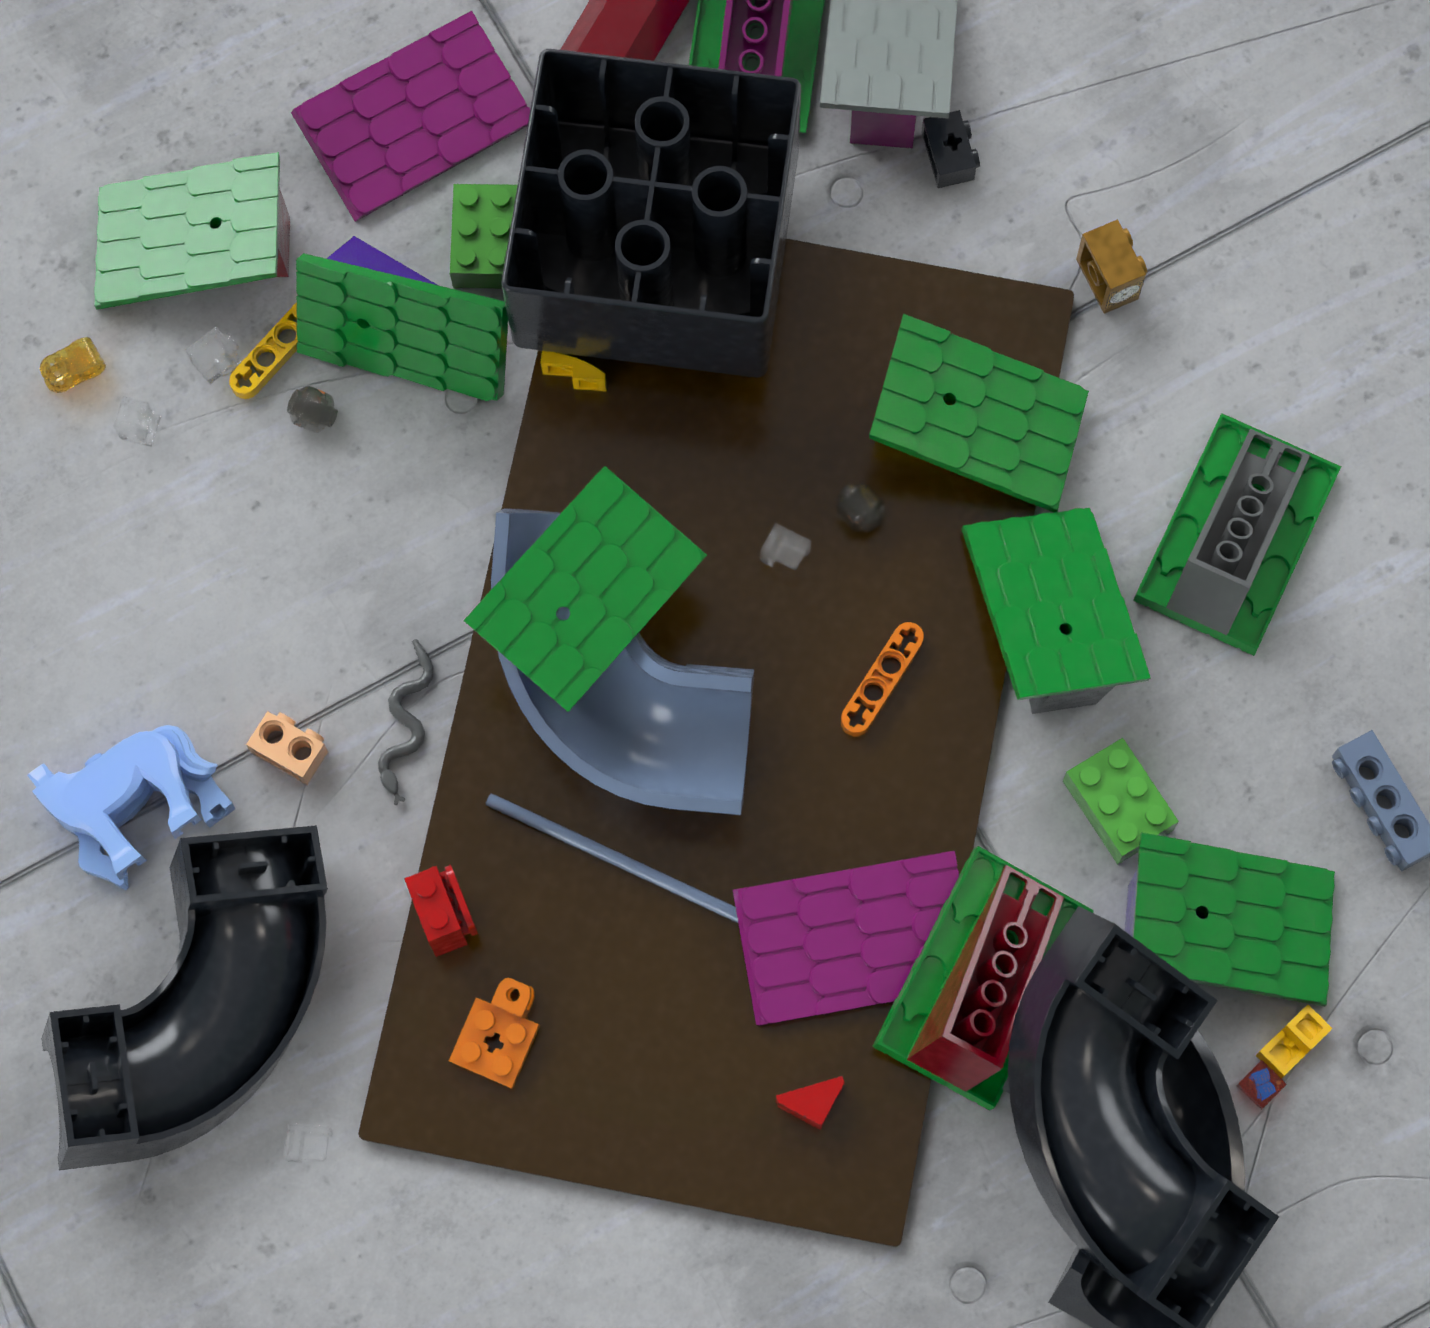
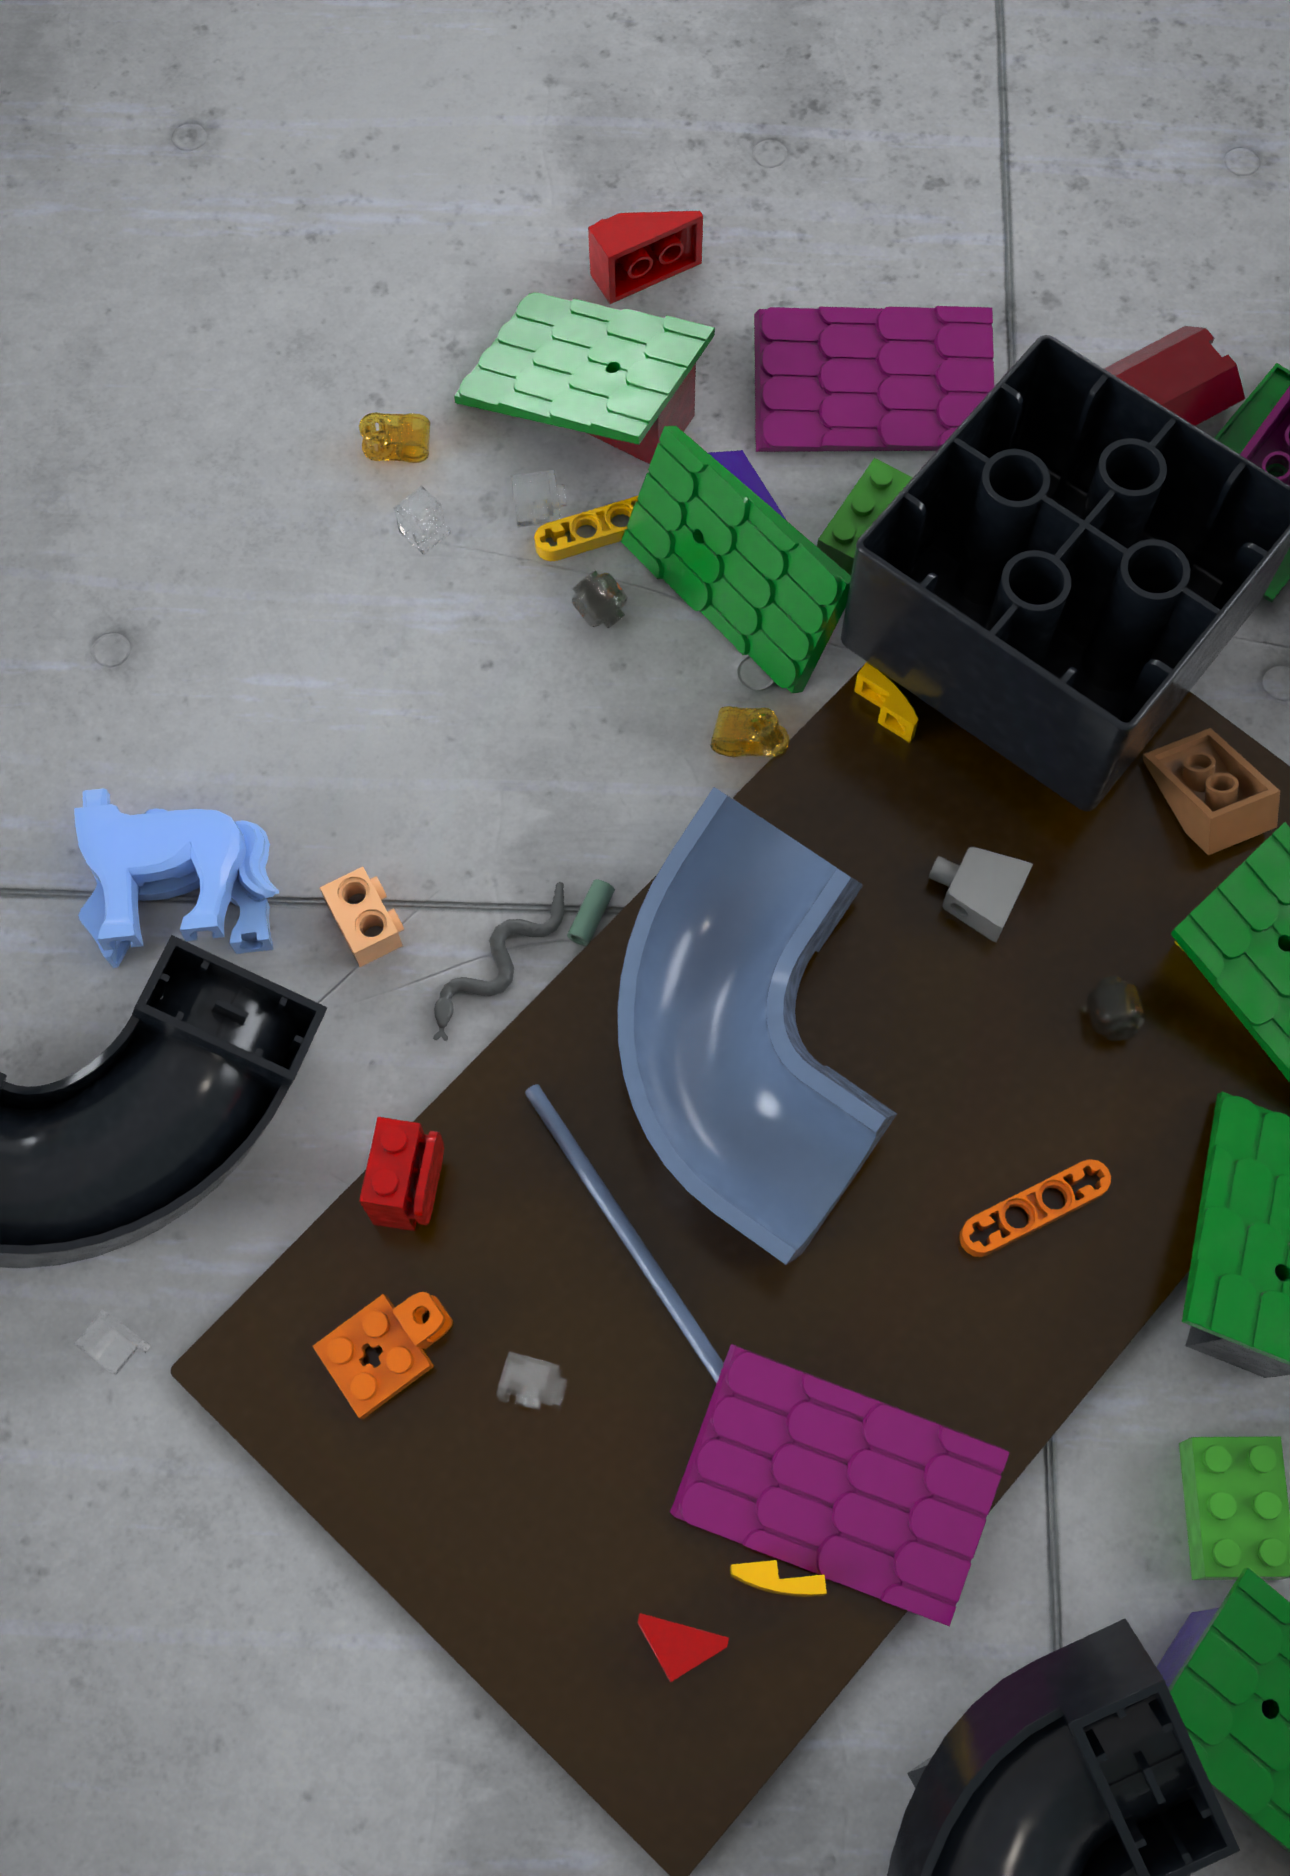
camera: 30 degrees right, 5 degrees down
(169, 106) = (643, 249): none -> red slope
(451, 649) = (590, 912): none -> sand green hinge
(485, 450) = (748, 733): none -> clear yellow piece
(606, 563) = (798, 908): green piece -> none
(613, 994) = (531, 1381): none -> clear brick
(720, 473) = (982, 888): none -> light grey torso
(784, 548) = (1007, 1004): clear panel -> none
(841, 307) = (1214, 791): none -> medium nougat slope
(843, 1026) = (765, 1577): none -> yellow slope
(971, 976) = (954, 1617): piece -> none

